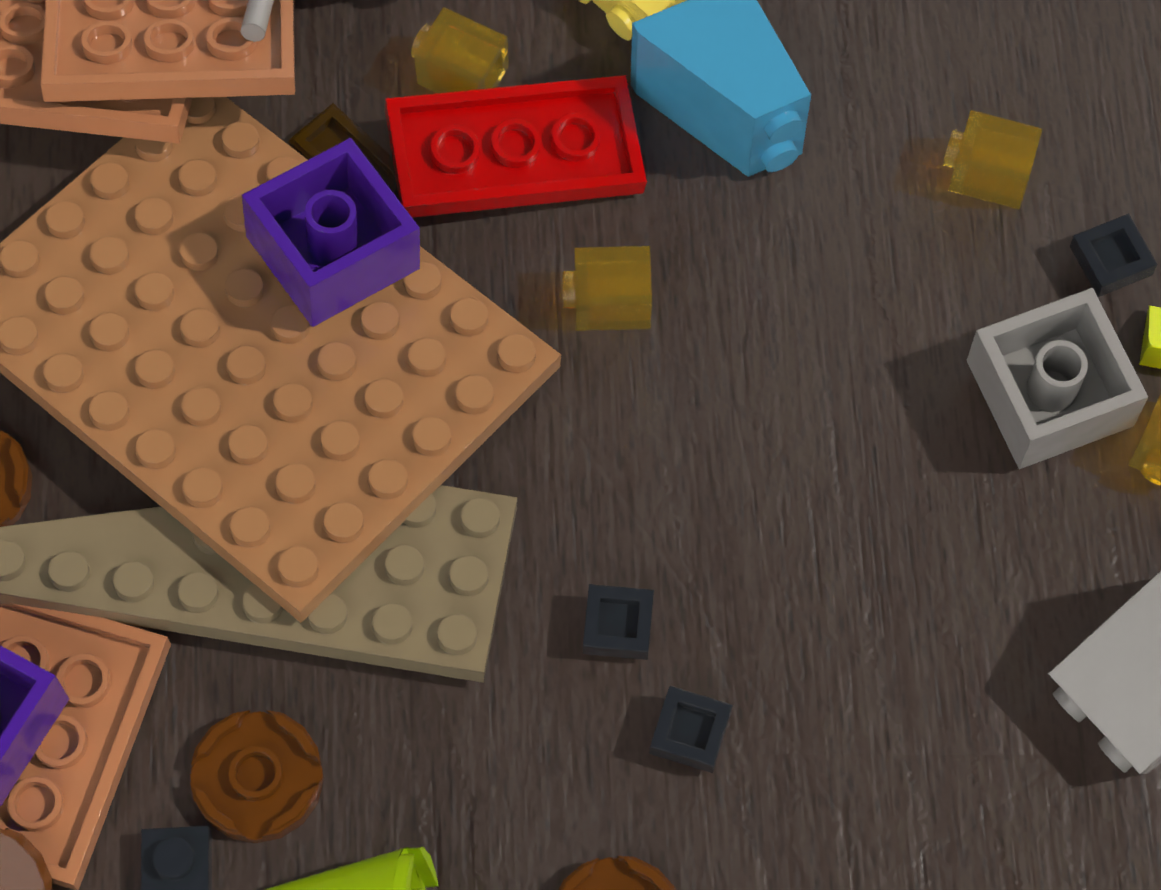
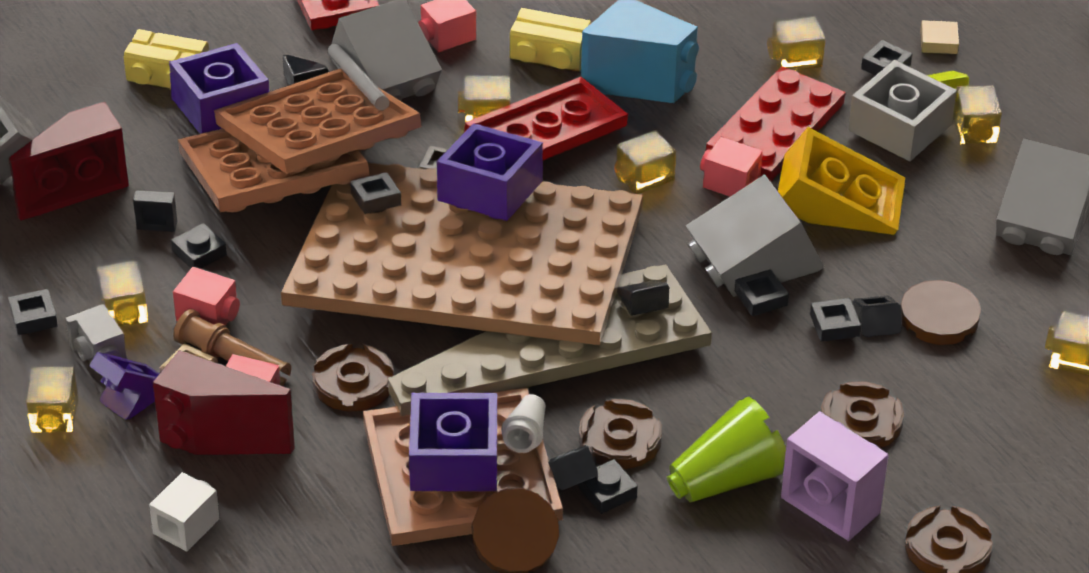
camera: 30 degrees left, 25 degrees down
(102, 718) = (525, 425): none -> white cone
(140, 814) = (574, 467): none -> black slope
(162, 185) = (375, 193): none -> black plate
(420, 561) = (645, 296): none -> black slope
(664, 523) = (751, 235): none -> light grey slope
(730, 362) = (730, 166): none -> coral brick
(767, 743) = (878, 315): none -> black slope
(863, 789) = (940, 311): none -> tile
(866, 295) = (780, 115): none -> plate
(868, 480) = (839, 186): none -> yellow slope

